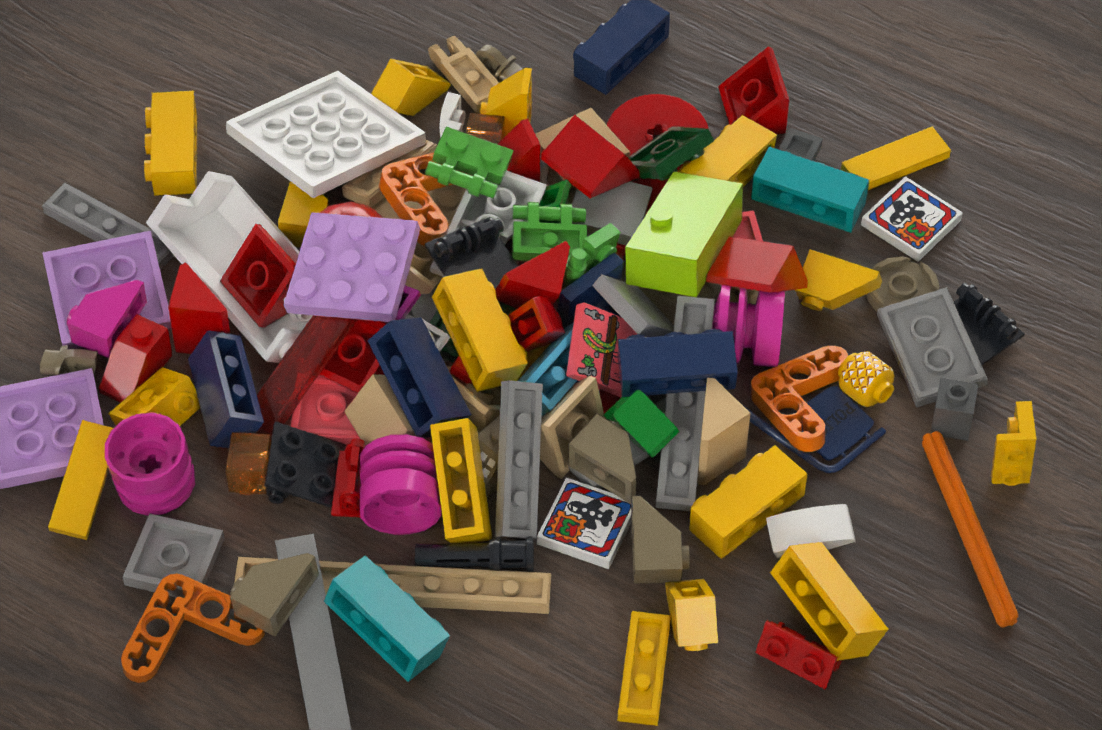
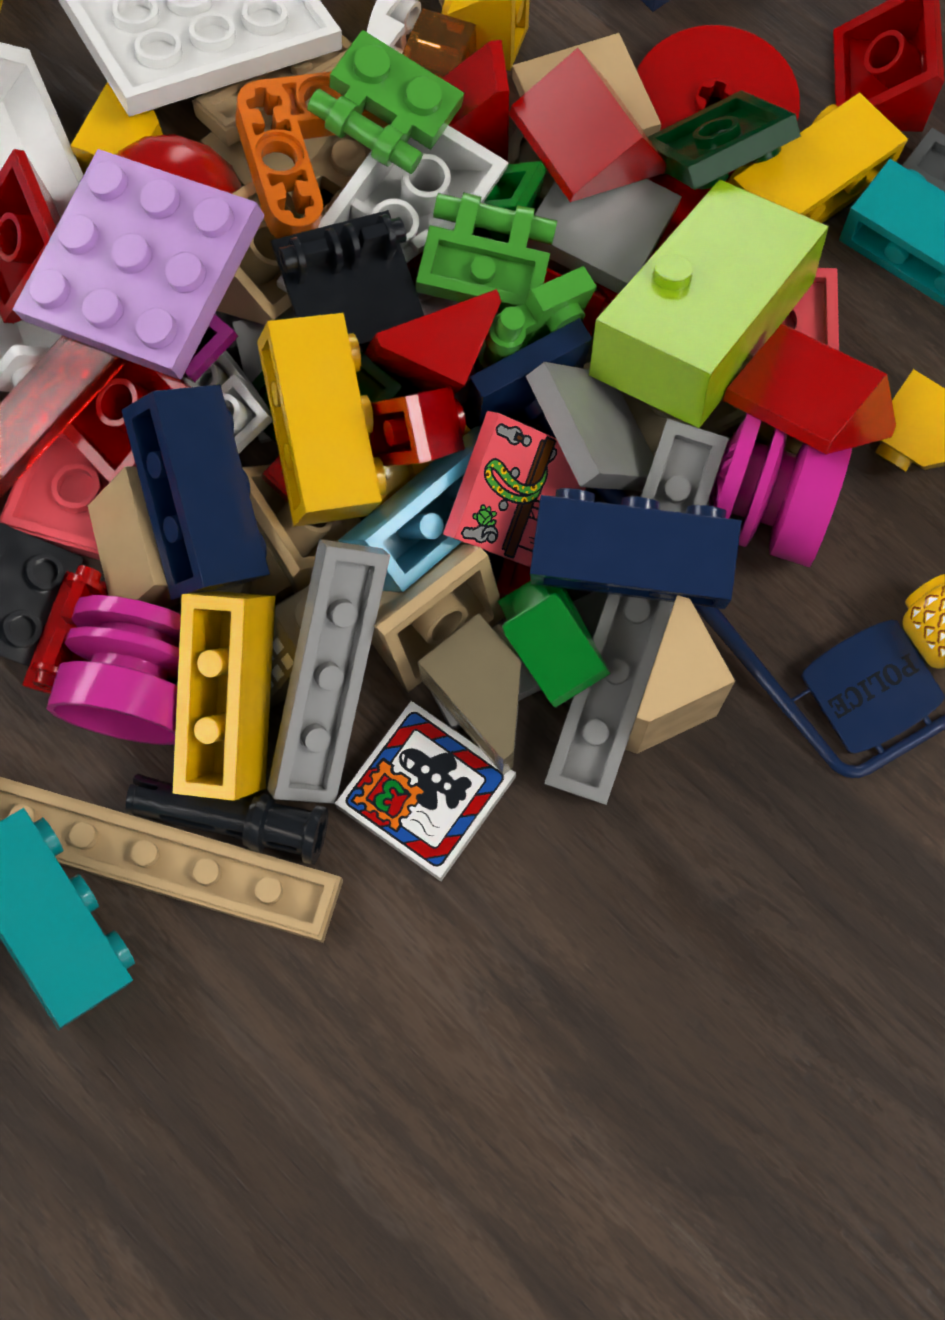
camera: 15 degrees right, 20 degrees up
(644, 668) = (449, 1092): yellow tile -> none
(655, 546) = (520, 874): dark tan slope -> none
(692, 613) = (552, 1011): yellow slope -> none
(746, 500) = (696, 812): yellow brick -> none
(796, 654) = (736, 1151): red hinge -> none
(811, 525) = (790, 892): white slope -> none
(822, 369) = (815, 612): orange beam -> none
(829, 600) = (788, 1052): yellow brick -> none

